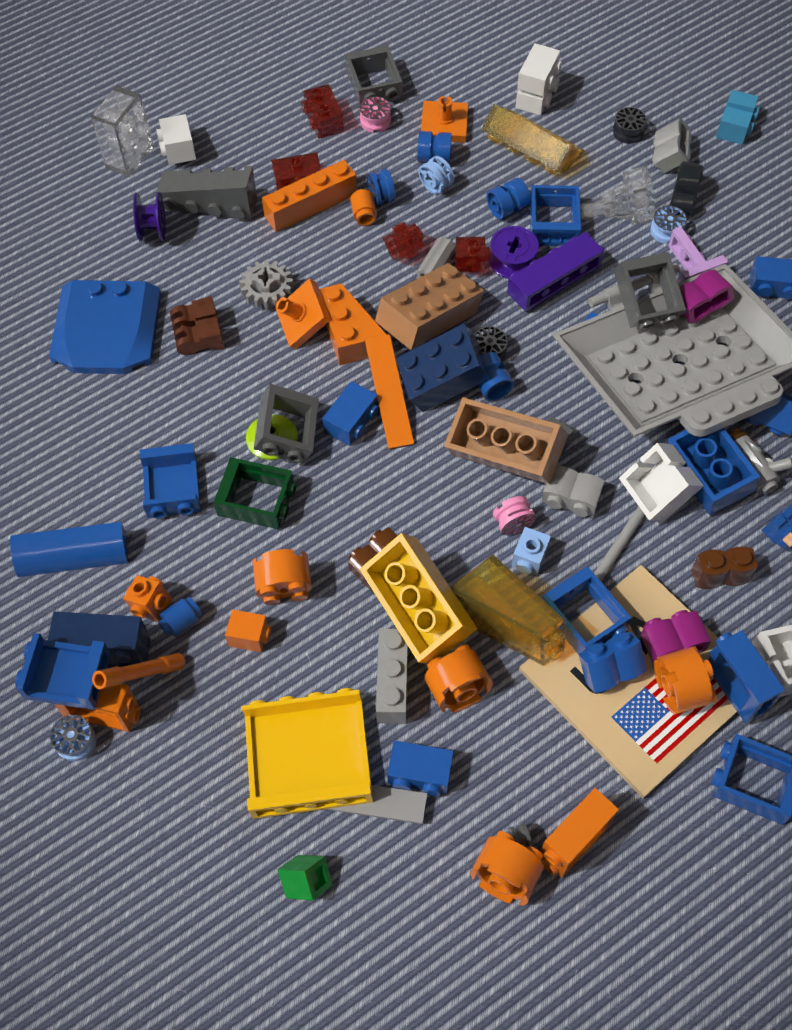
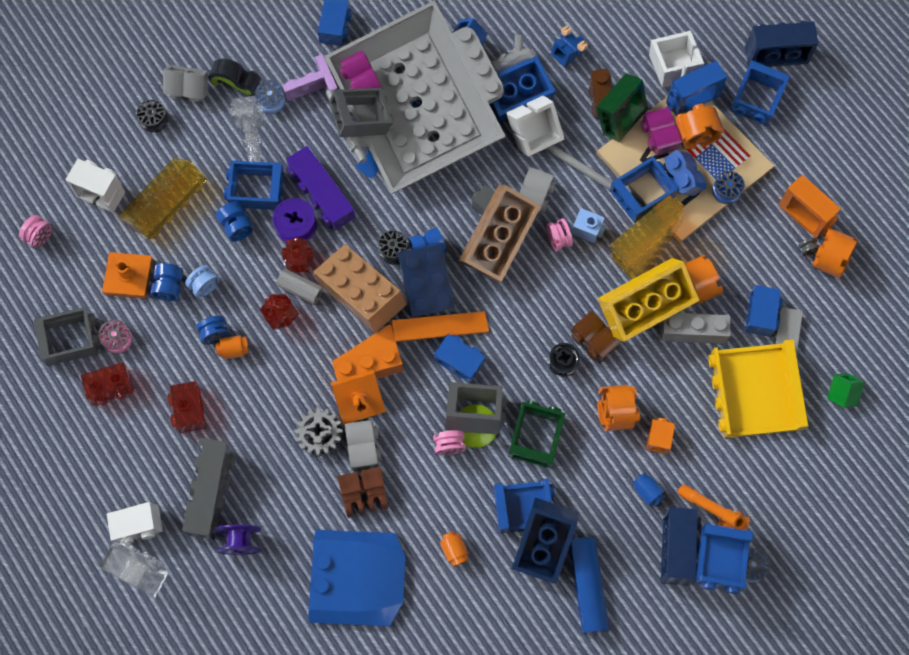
camera: 90 degrees left, 10 degrees up
(119, 490) = (545, 540): none -> dark blue brick
(126, 413) = (454, 548): none -> orange brick
(147, 597) = (636, 505): orange brick -> none
(249, 323) = (362, 445): none -> light grey brick
(250, 402) = (449, 443): none -> bright pink wheel
(309, 195) = (217, 394): orange brick -> none
(350, 523) = (563, 359): none -> black wheel
(485, 43) = (35, 230): none -> bright pink wheel
(599, 724) = (728, 187): none -> blue wheel
(713, 570) = (616, 123): none -> dark green window
(737, 117) = (152, 28): dark azure brick -> none

